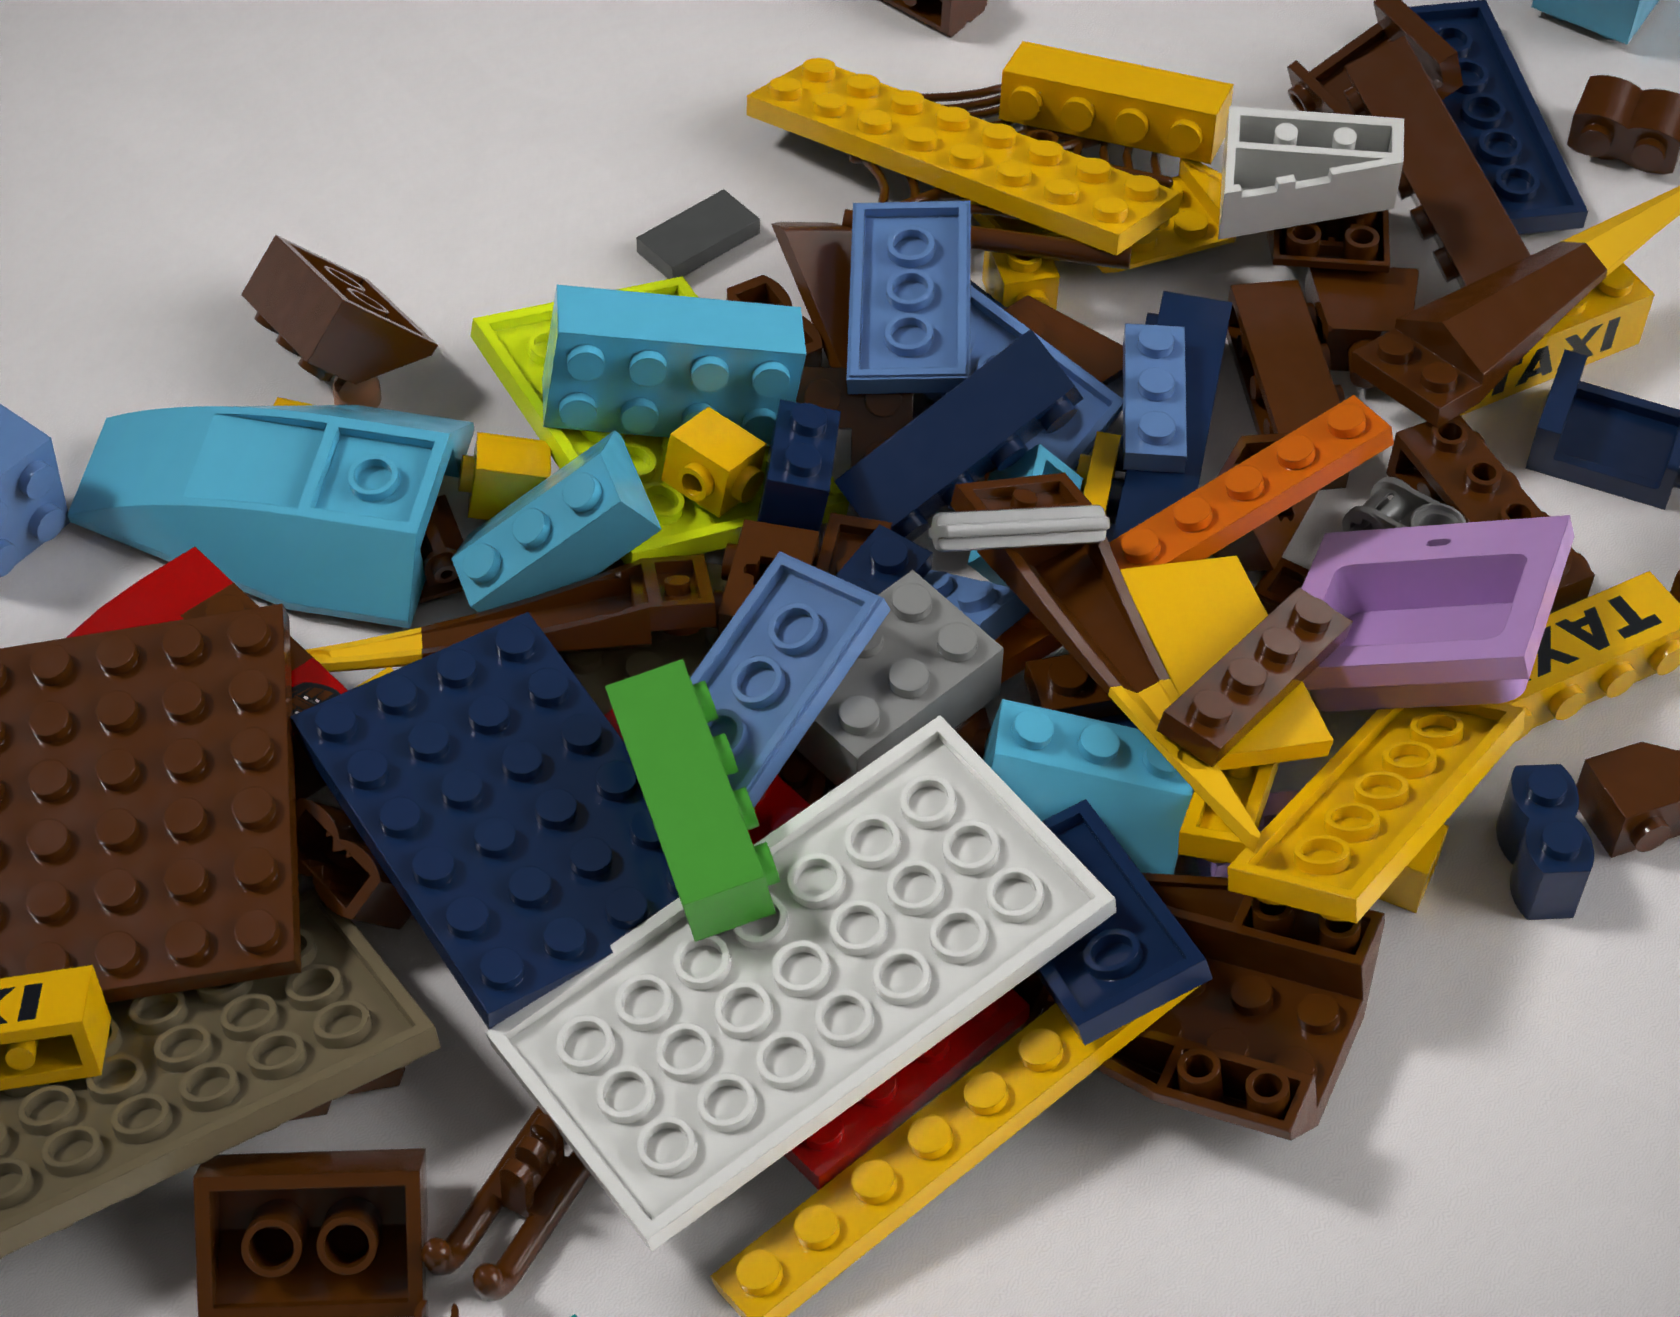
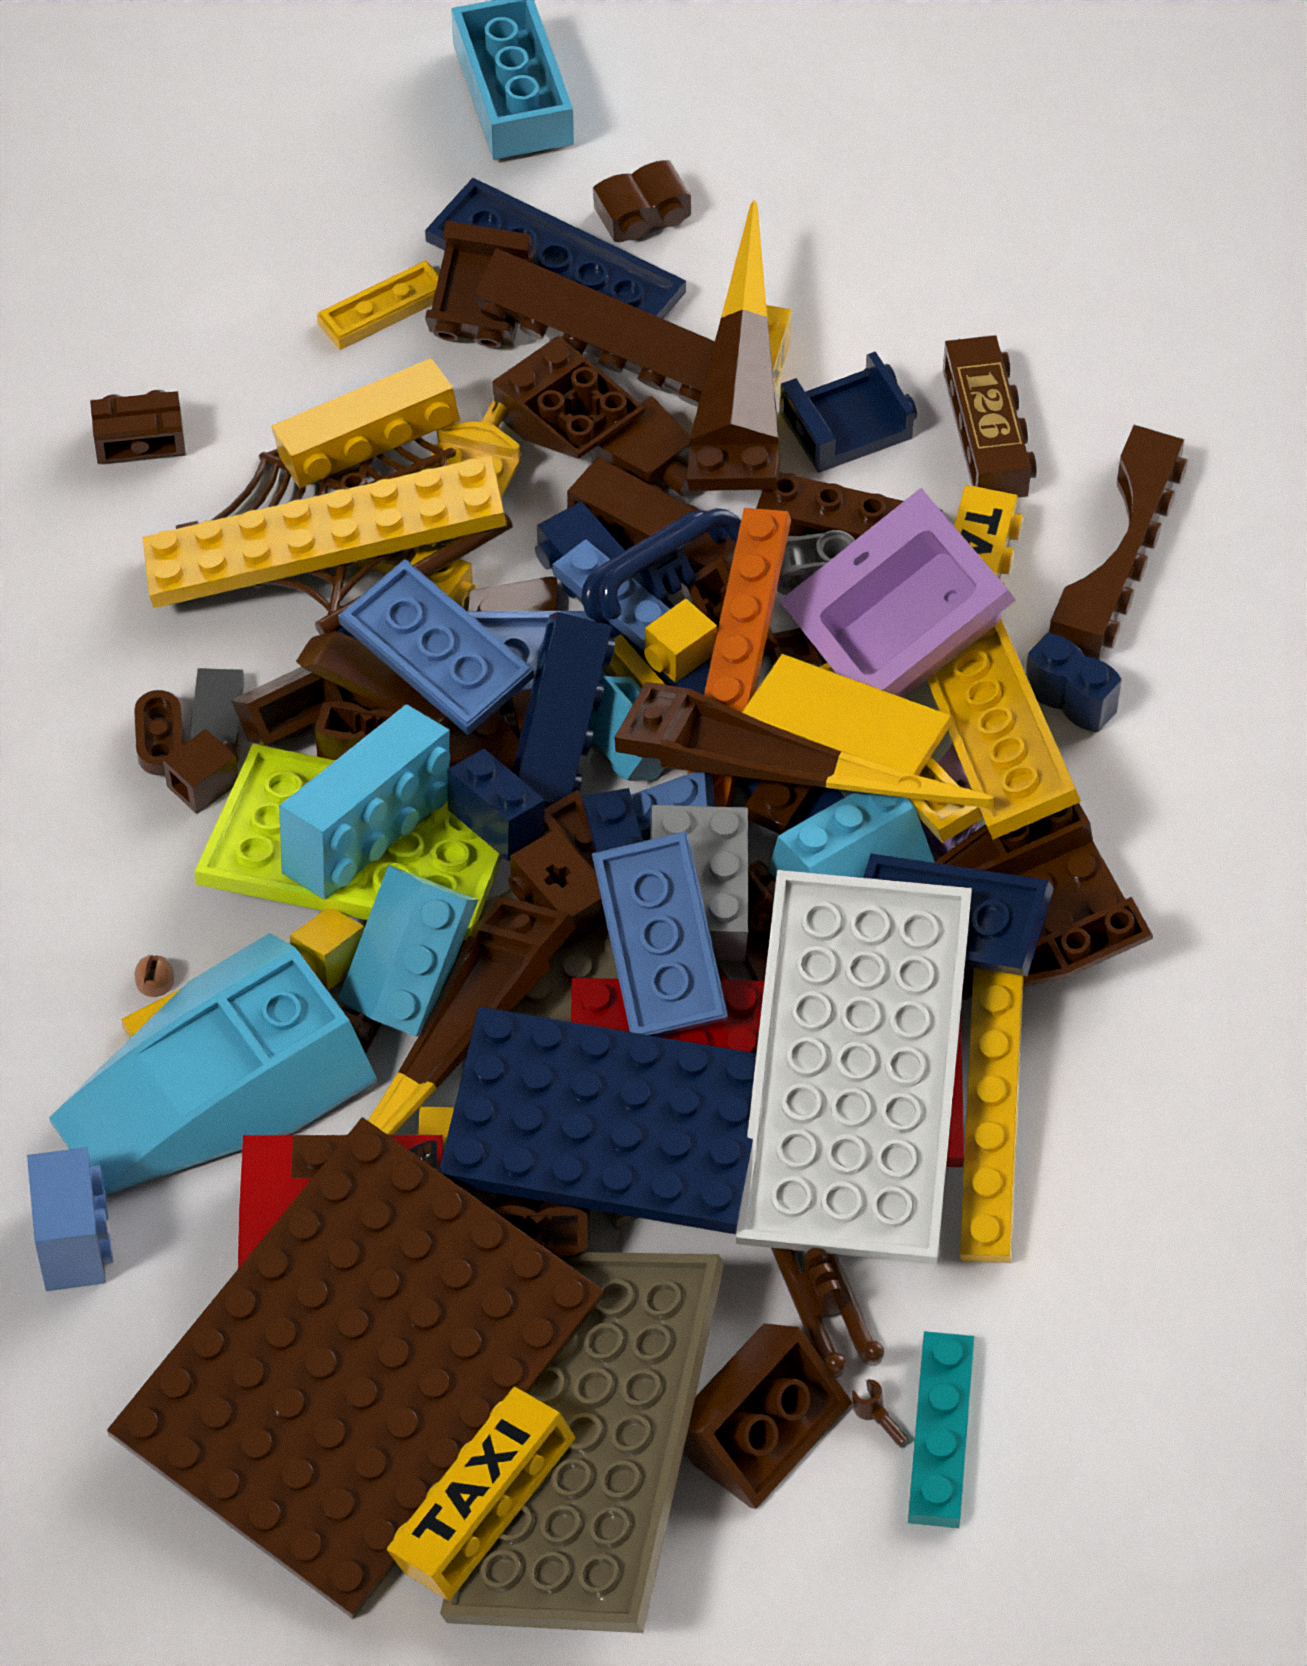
camera: 45 degrees left, 5 degrees up
(331, 316) = (100, 942): reddish brown slope -> none
(613, 256) = (201, 770): none -> reddish brown brick
(622, 211) = (157, 736): none -> reddish brown plate
(691, 799) = (711, 1023): bright green brick -> none
(714, 462) = (449, 837): yellow brick -> none
(731, 257) = (284, 706): none -> reddish brown brick
(1018, 528) = (684, 733): light grey axle -> none
(1153, 469) = (679, 640): none -> yellow brick
(1218, 384) = (657, 559): none -> dark blue piece
(1254, 677) = (883, 713): reddish brown plate -> none
(1265, 41) = (379, 305): none -> yellow tile
(1306, 168) = (550, 385): white wedge -> none

